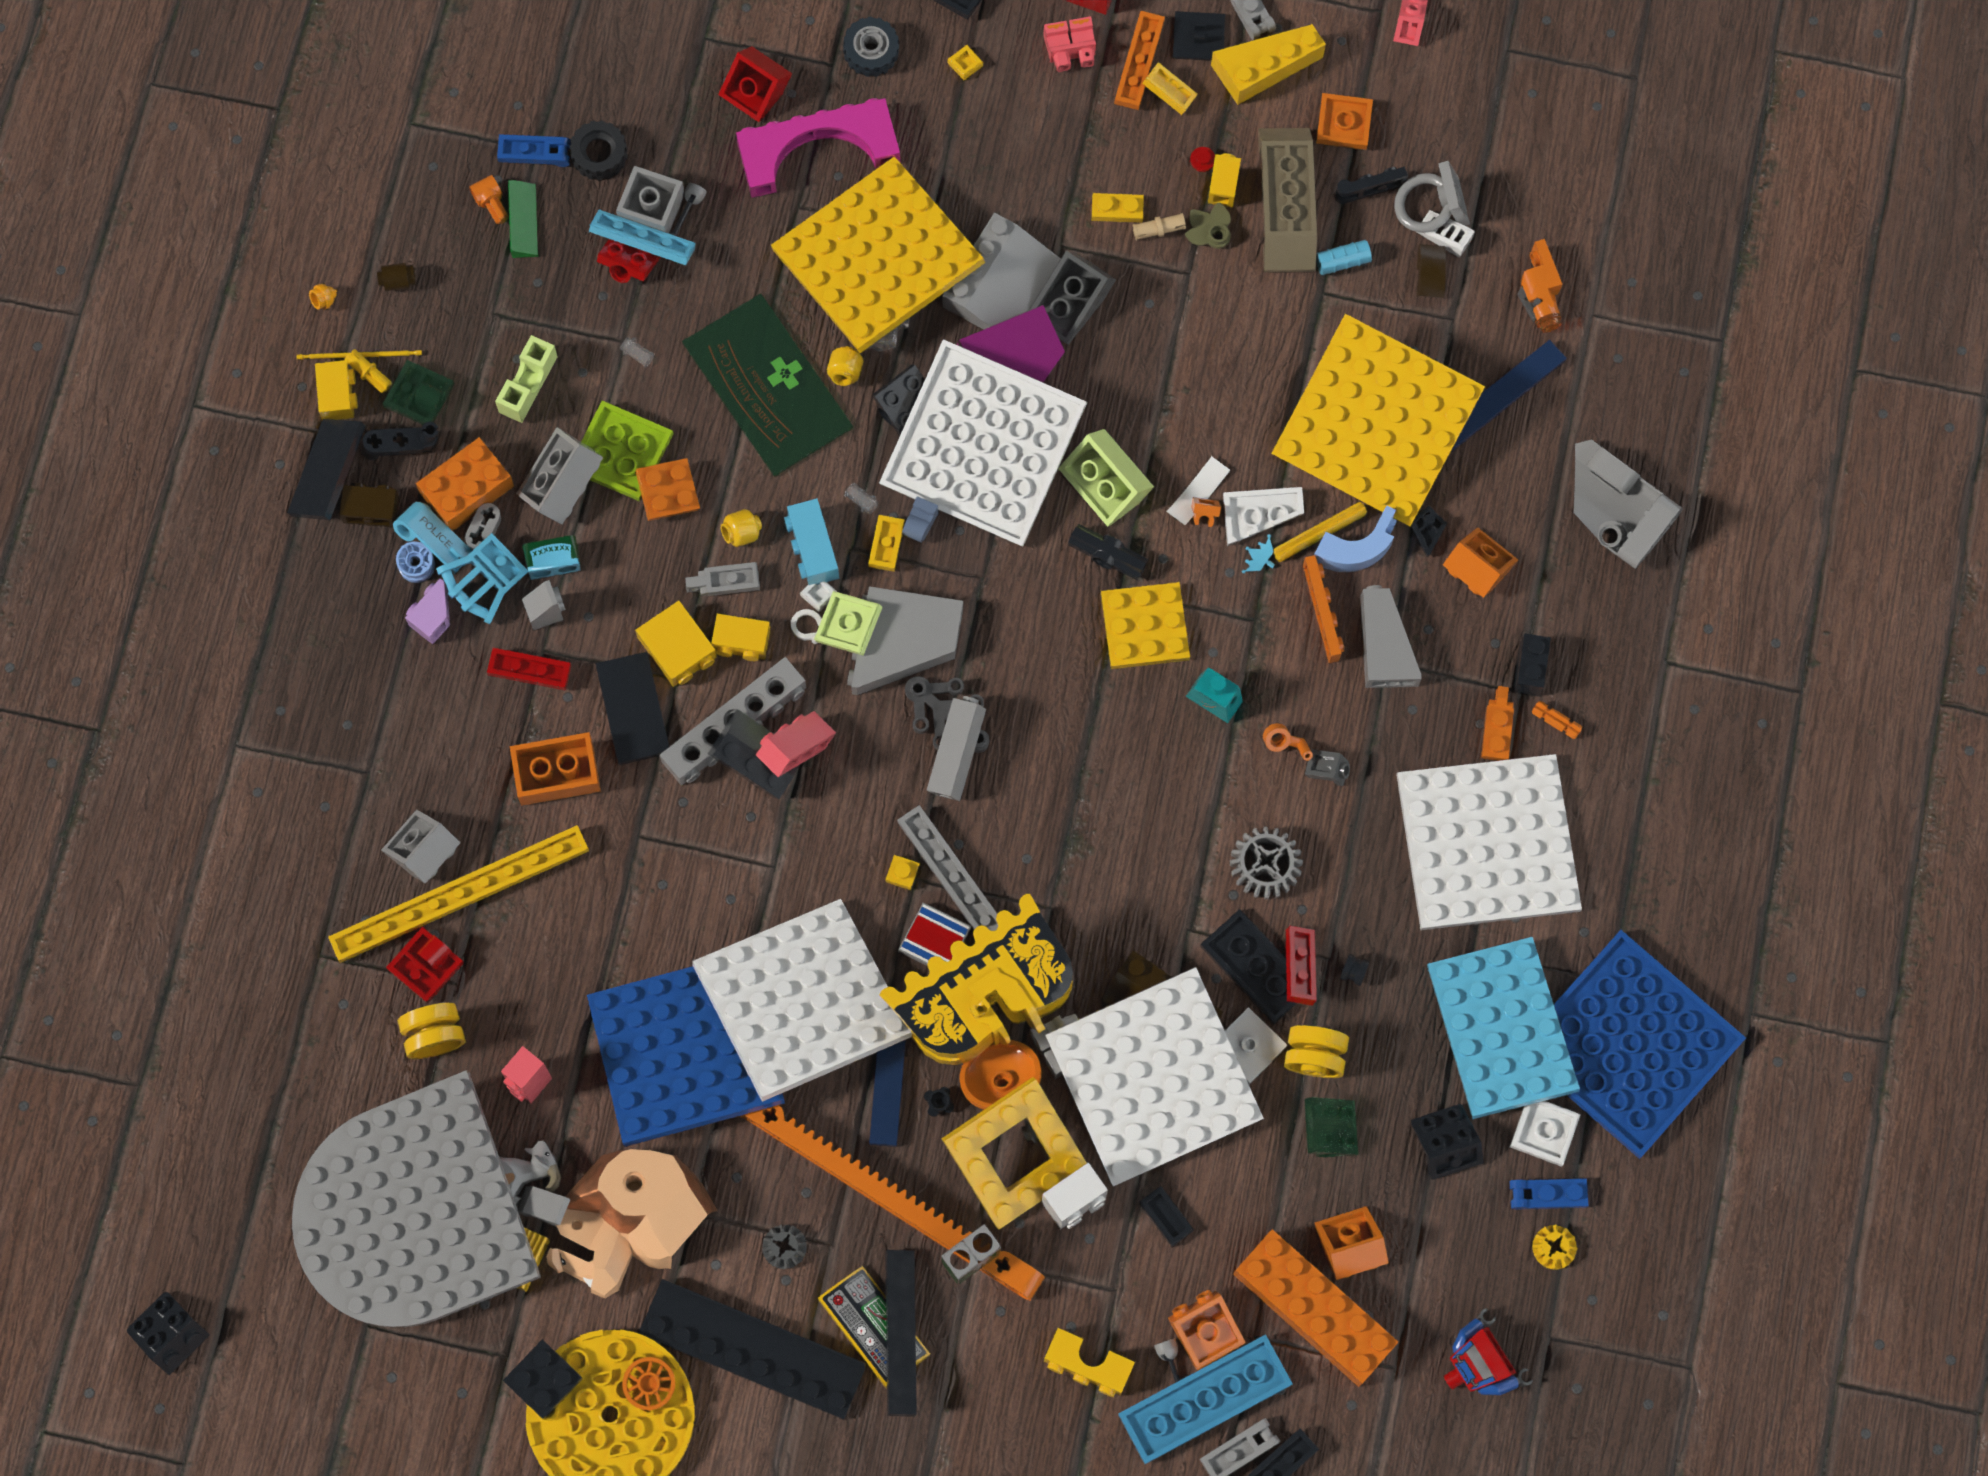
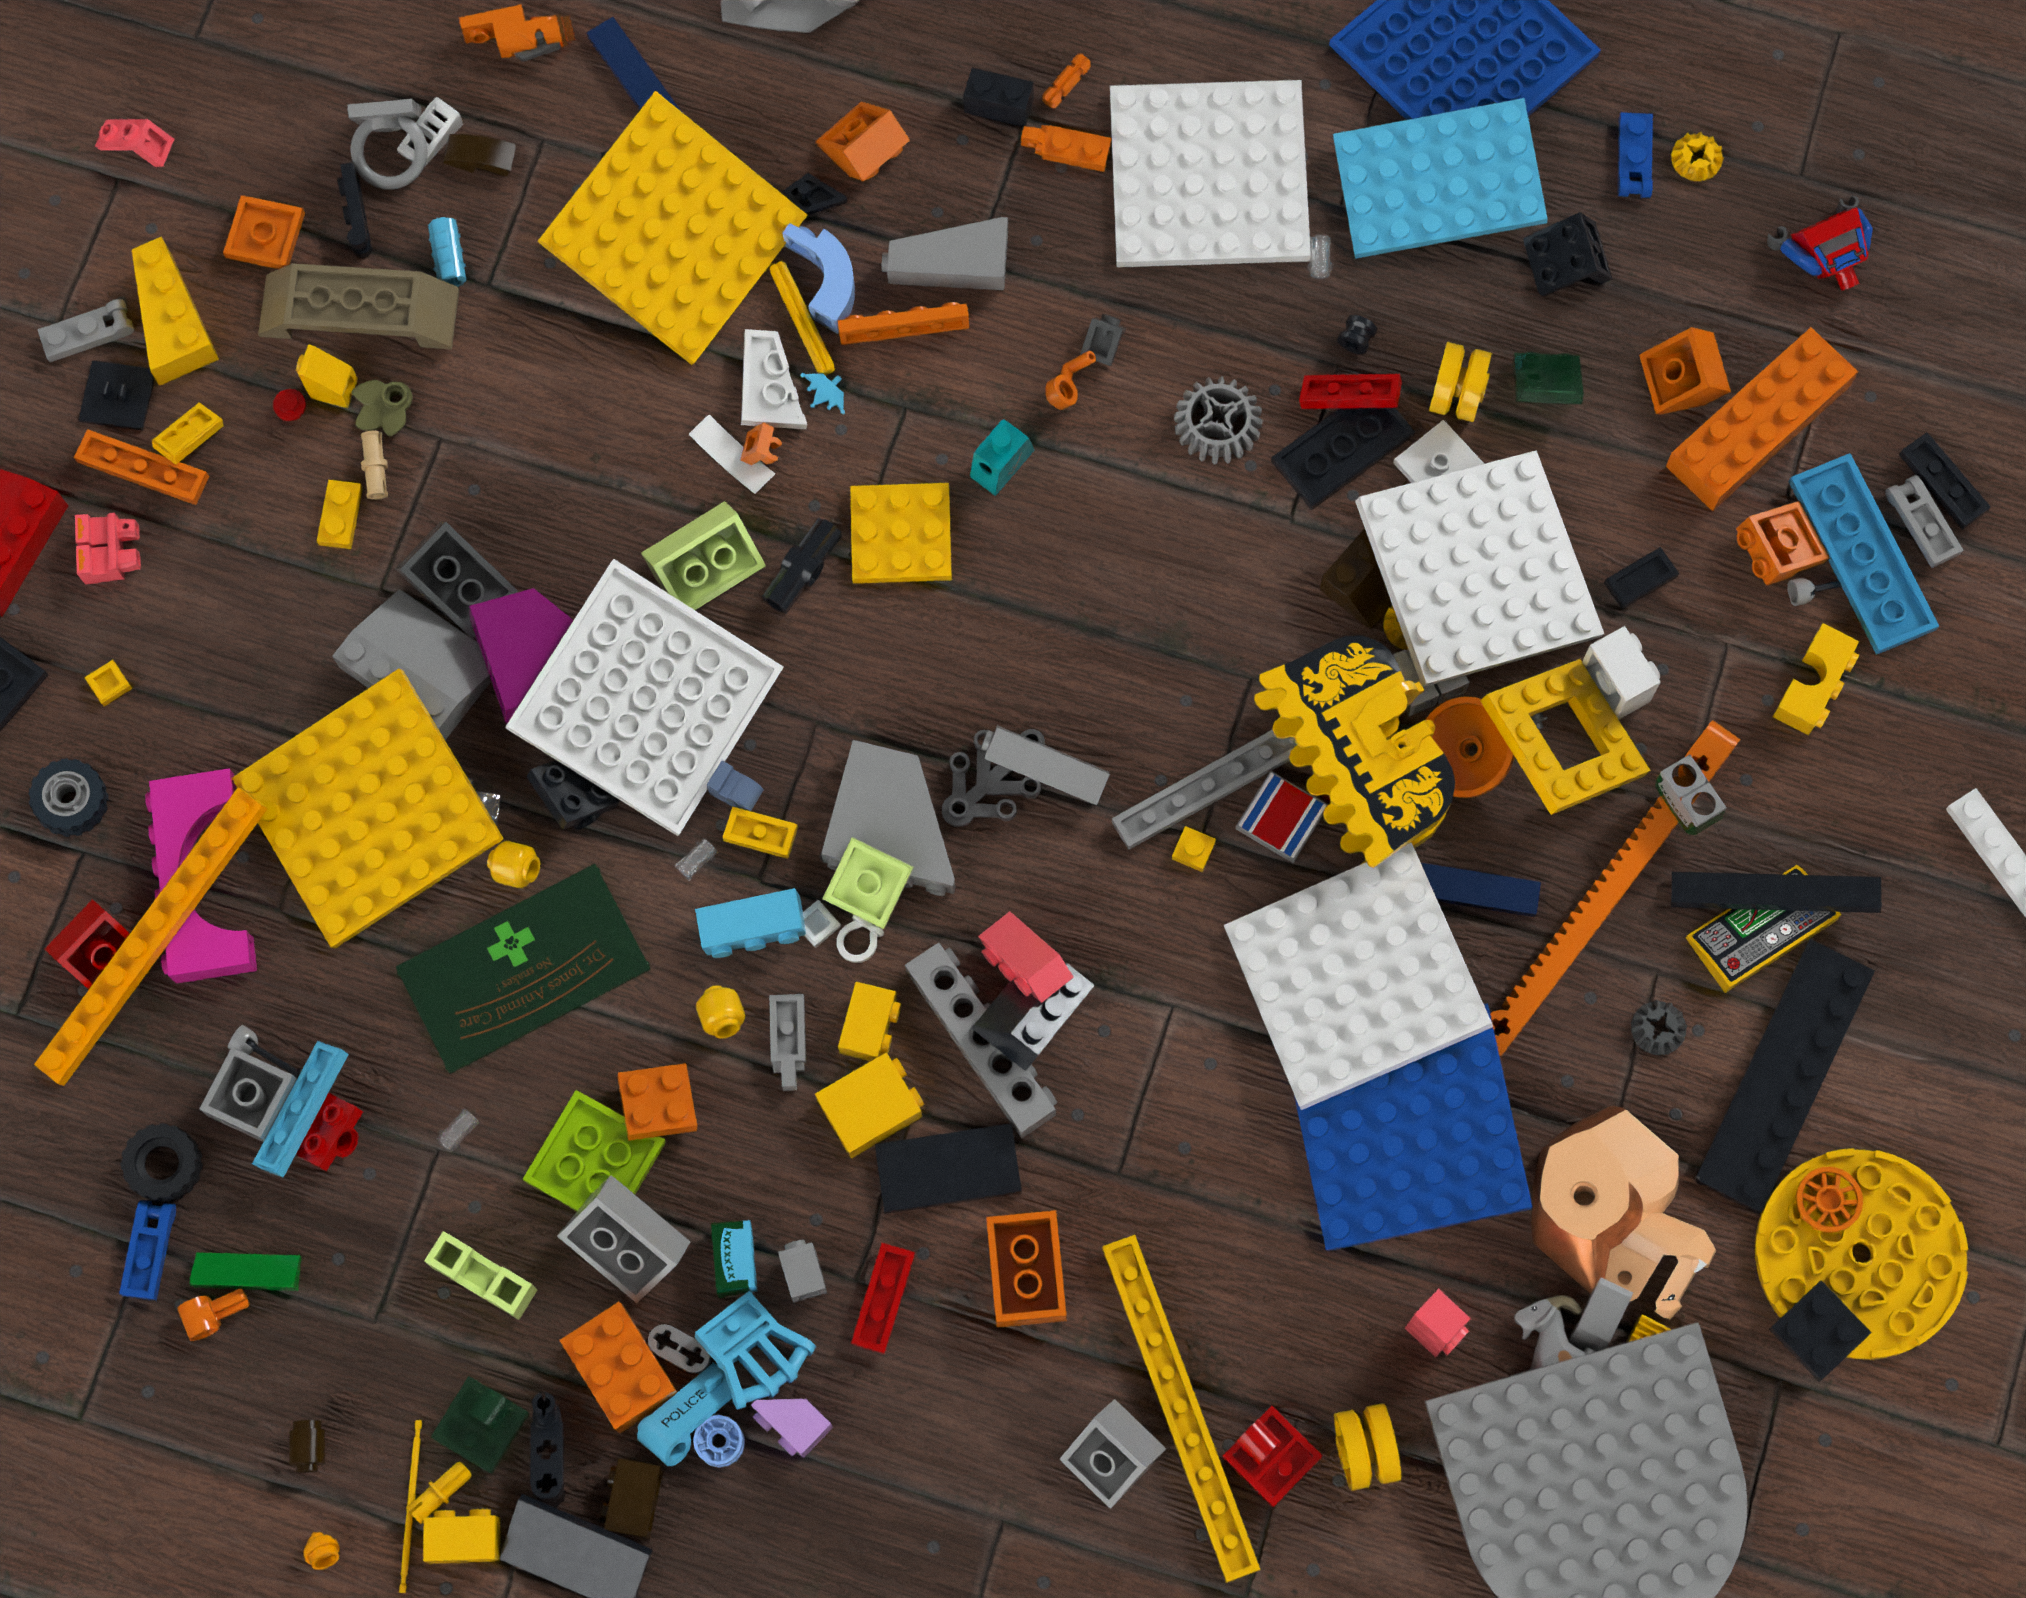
camera: 80 degrees left, 0 degrees up
(765, 116) = (150, 936): none -> light orange plate
(942, 1094) = (1491, 819): black plate -> none
(1422, 936) = (1320, 257): none -> clear pin
(1545, 1131) = (1565, 149): white plate -> none

